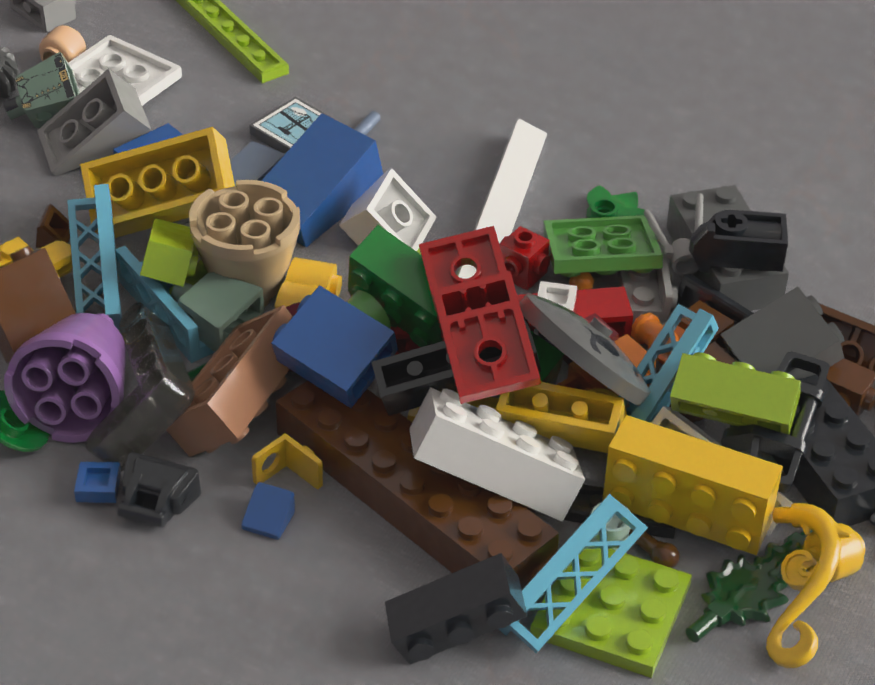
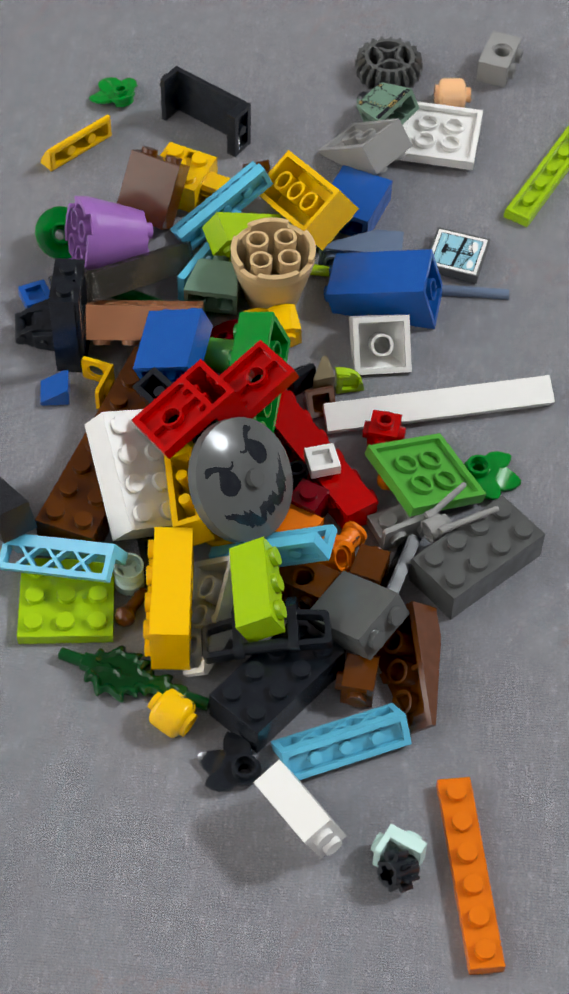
camera: 65 degrees right, 10 degrees up
(201, 423) = (68, 313): none -> black door
(741, 241) = (451, 550): black piece -> none
(809, 583) = (131, 698): yellow plant -> none

